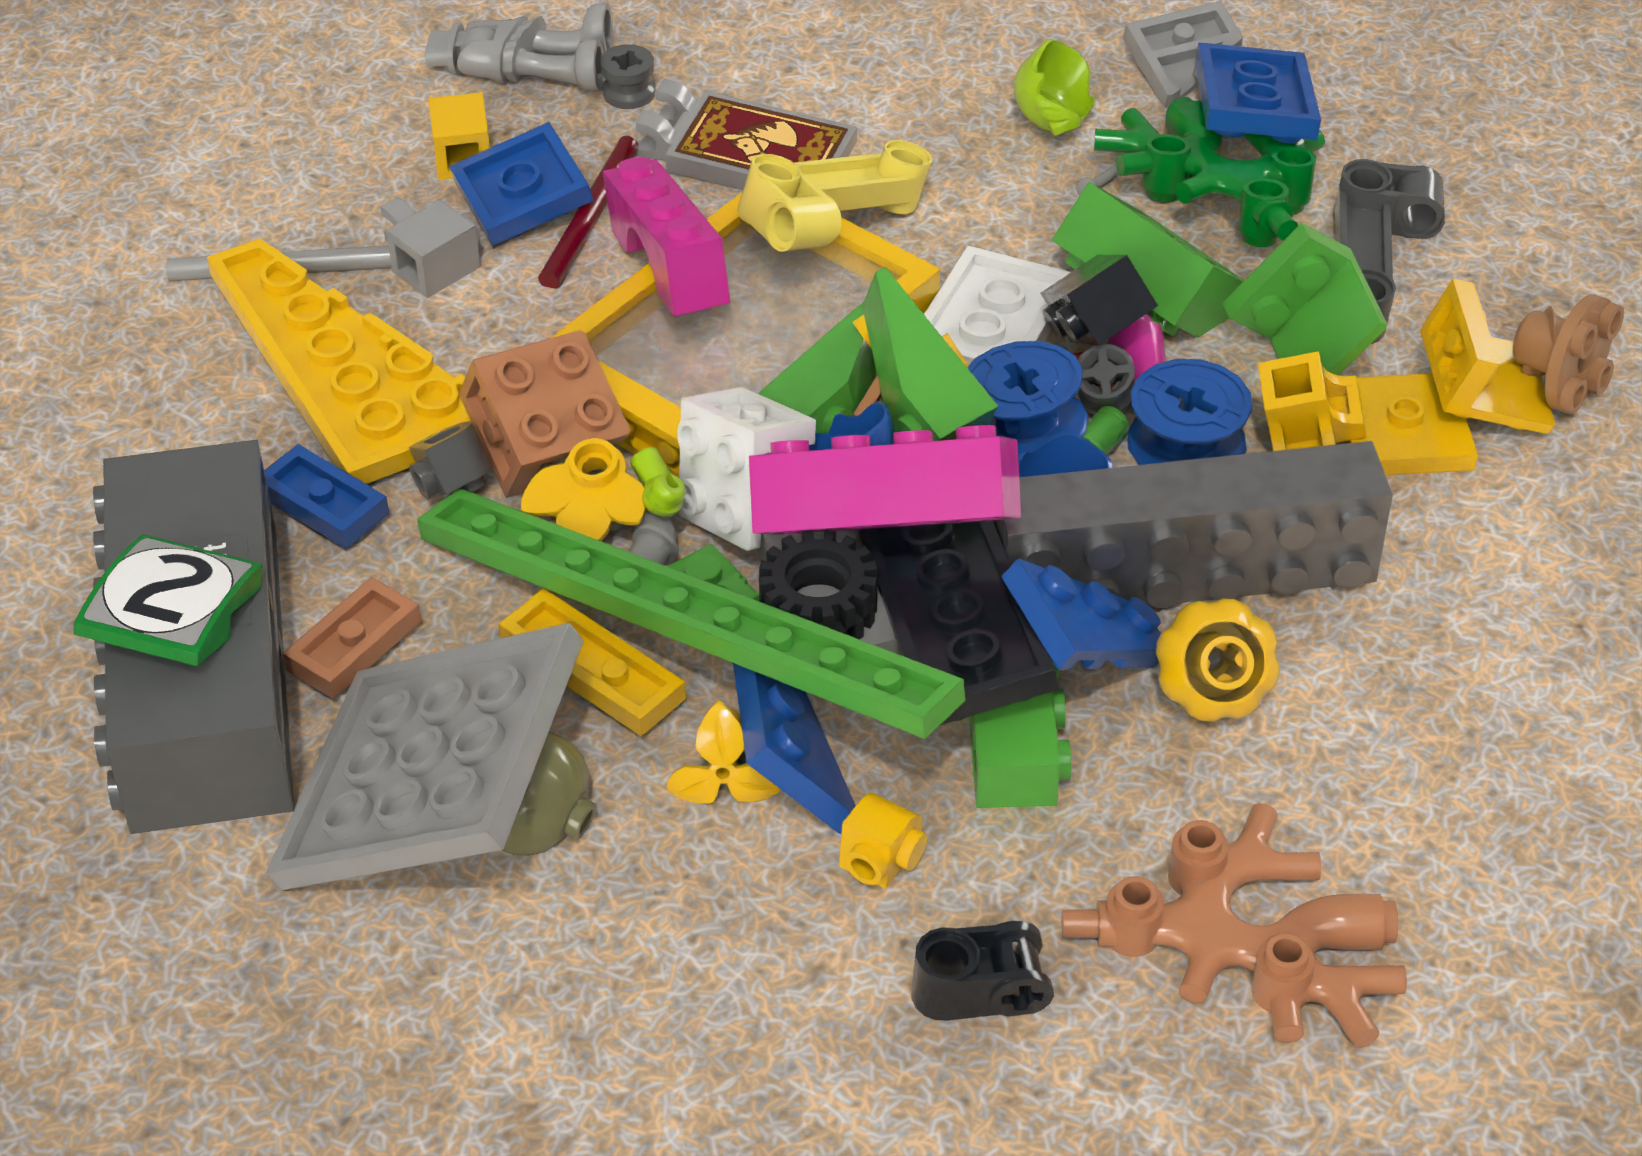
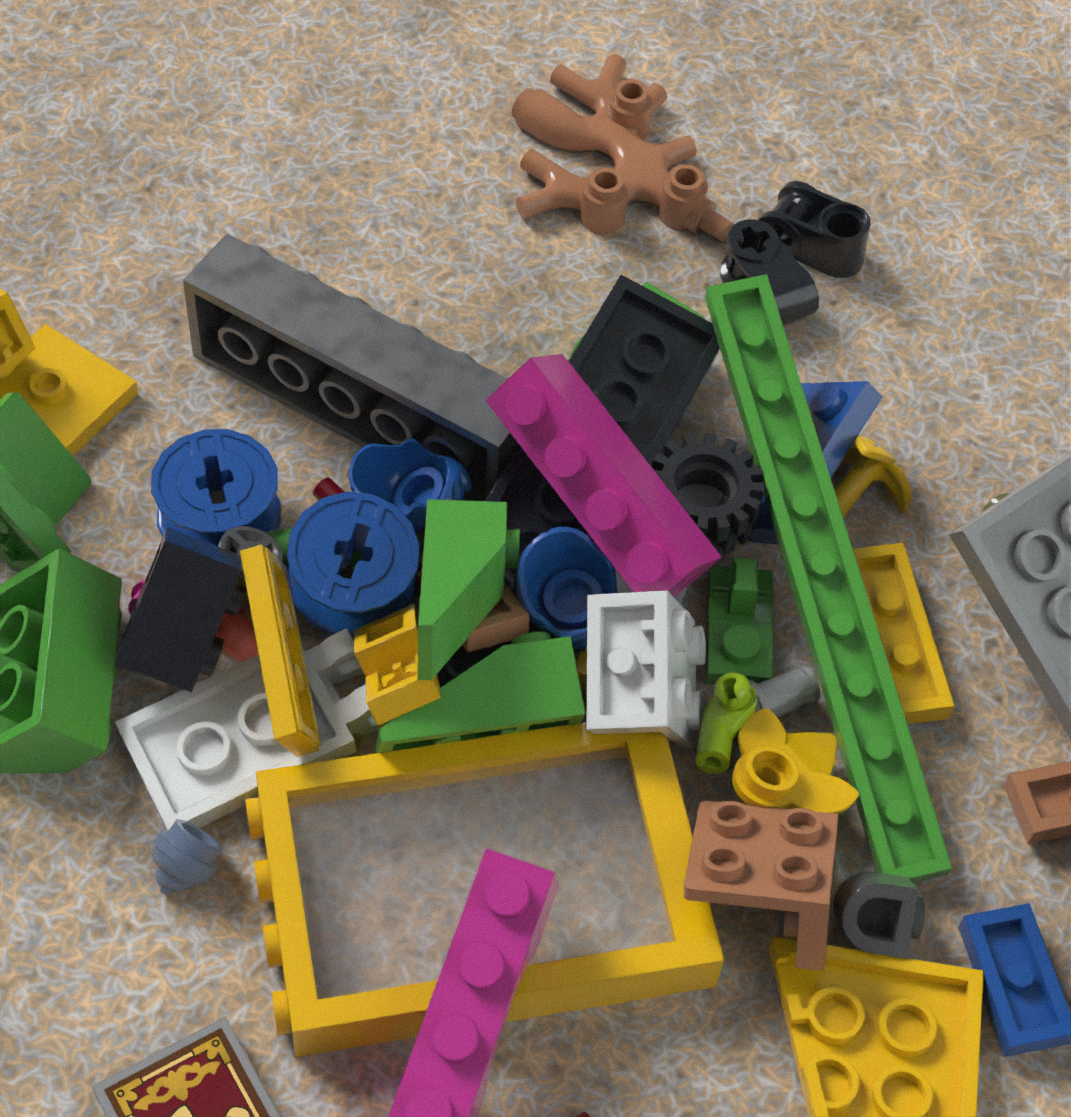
camera: 145 degrees left, 10 degrees up
(802, 201) = (345, 896): light yellow piece -> none
(881, 840) = (812, 343): yellow plate -> none
(939, 238) = (184, 857): none -> sand blue plate
(970, 879) = (759, 251): none -> black piece
(997, 307) = (280, 651): none -> yellow tile
(1083, 619) = (548, 325): blue wing -> none
(1246, 663) = (451, 282): yellow plant -> none
(1309, 404) = (126, 424): yellow brick -> none

